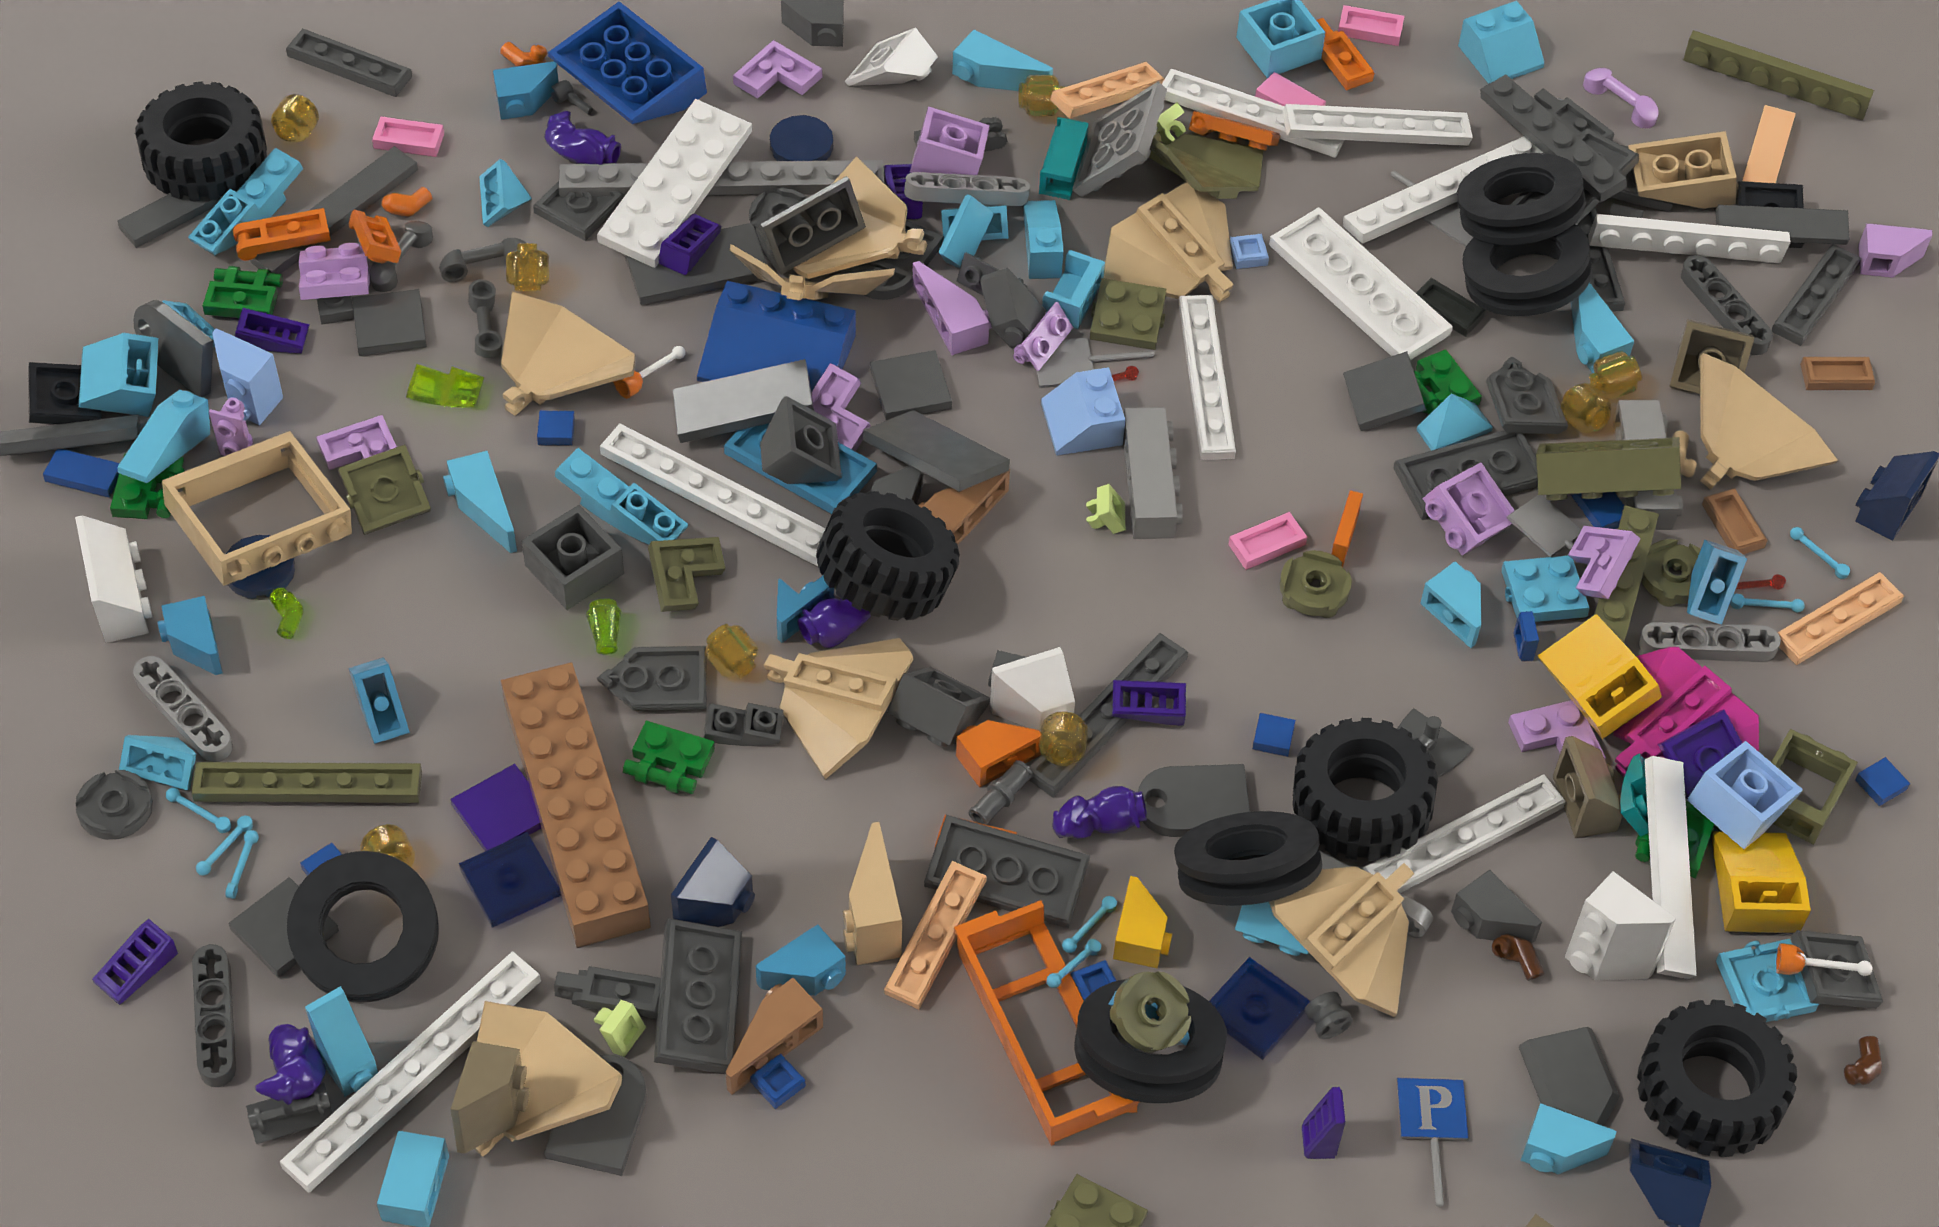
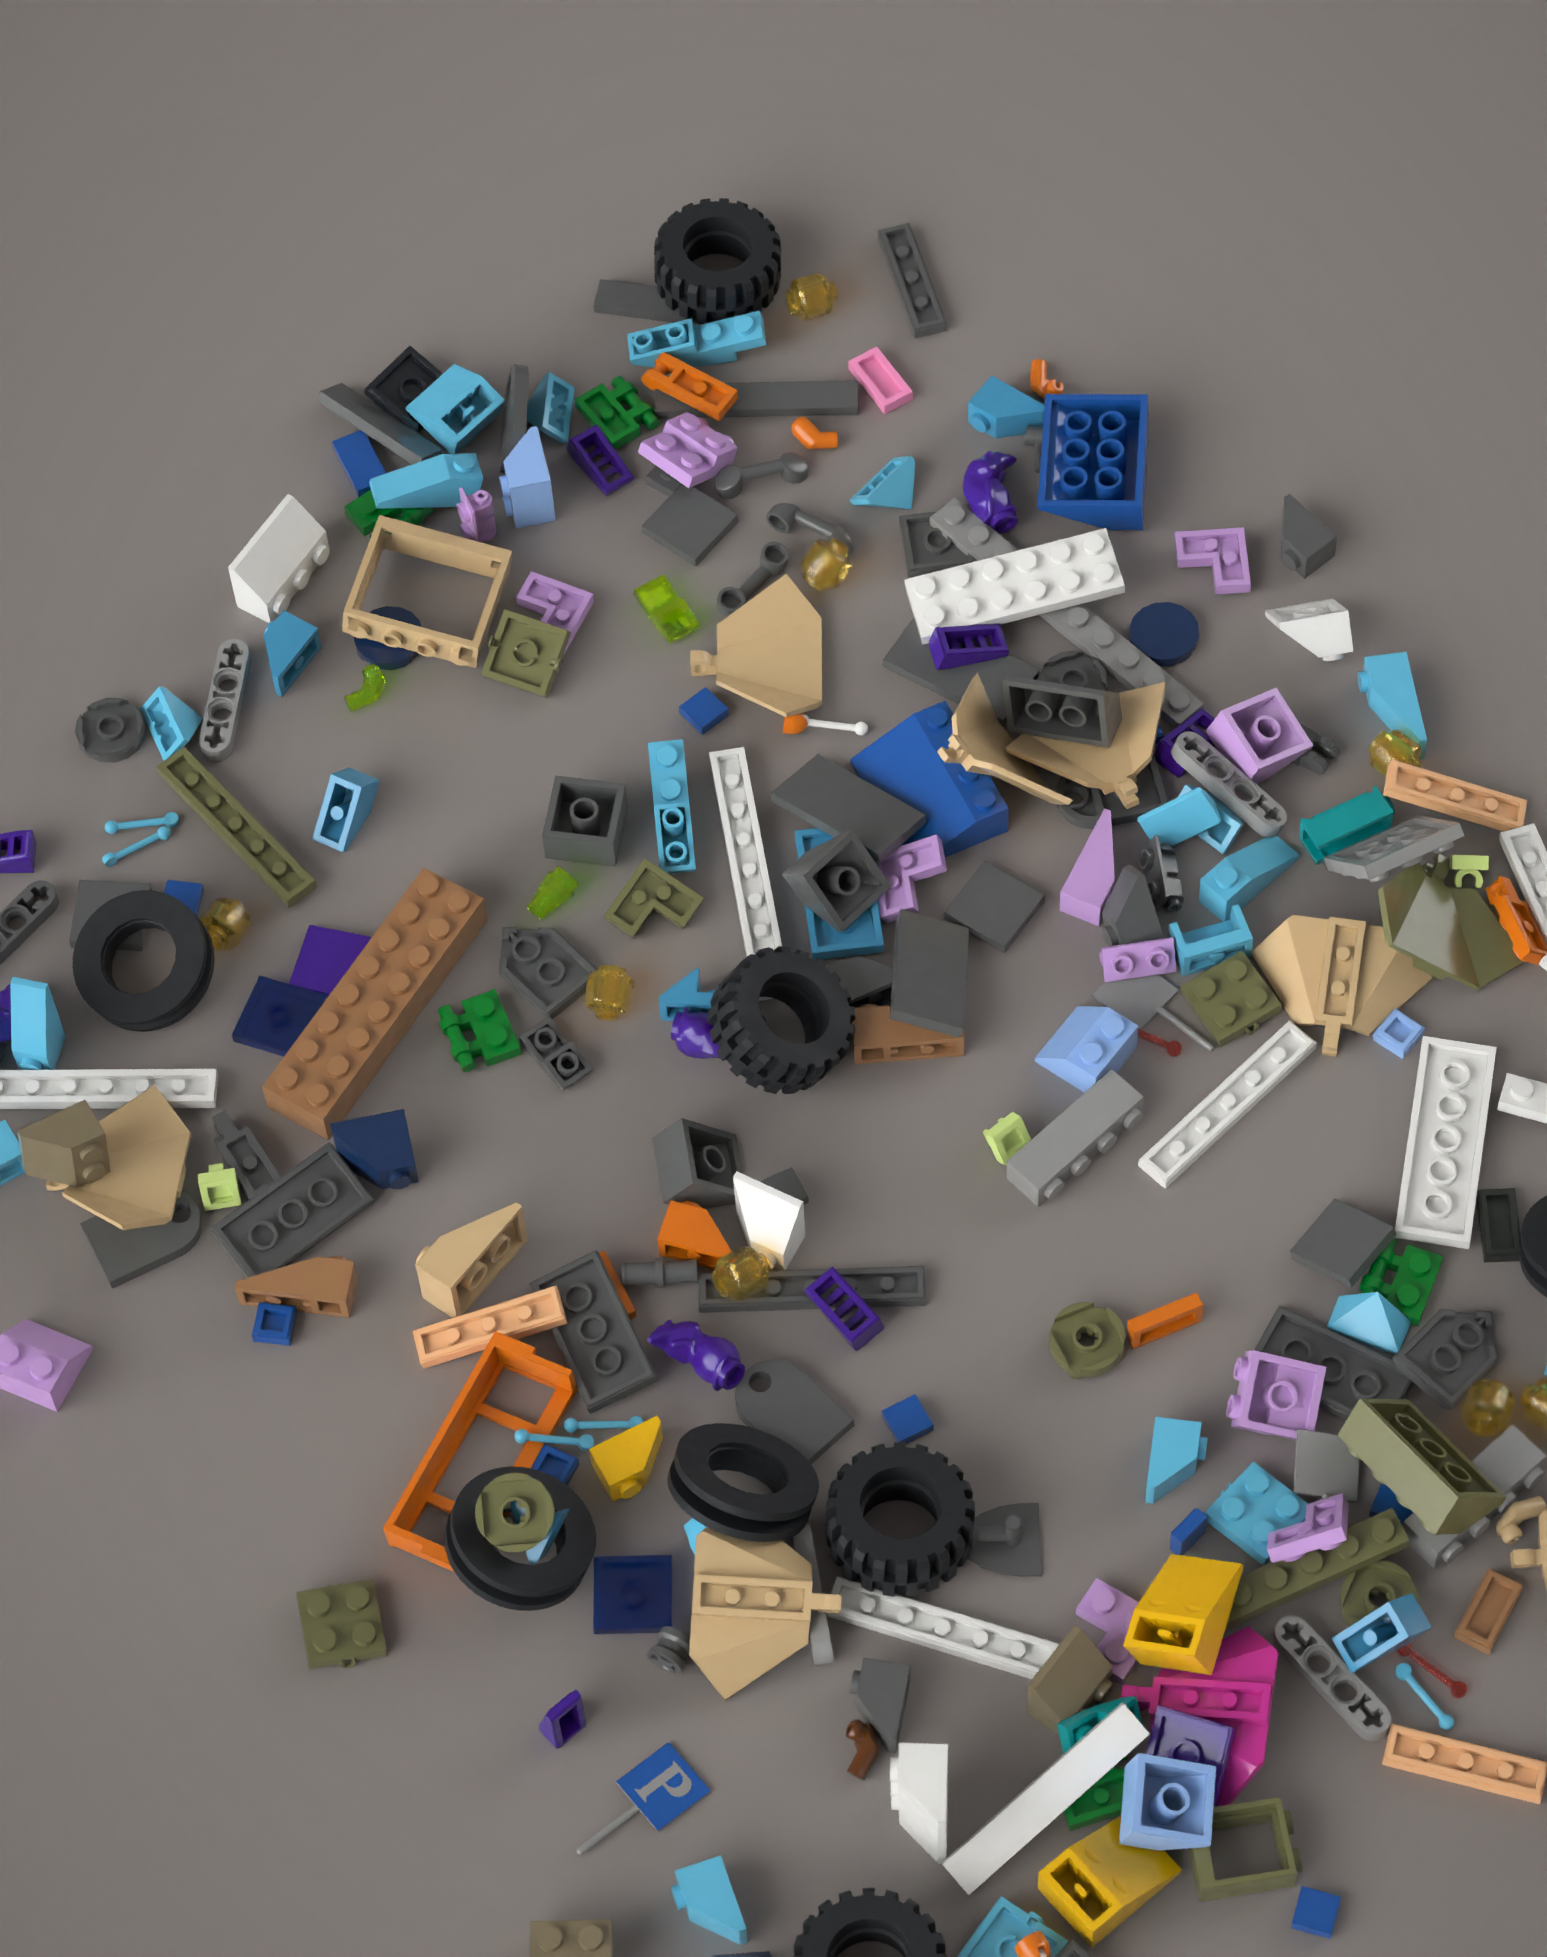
camera: 55 degrees right, 5 degrees up
(222, 824) = (158, 807): medium azure hinge -> none
(375, 237) = (745, 445): orange plate -> none
(480, 497) = (589, 712): medium azure slope -> none
(808, 959) = (382, 1261): dark azure slope -> none
(839, 696) = (643, 1092): tan panel -> none
(1267, 540) = (1099, 1274): bright pink tile -> none
(1571, 1074) = (784, 1870): dark grey tile -> none
(1841, 570) = (1524, 1732): medium azure hinge -> none

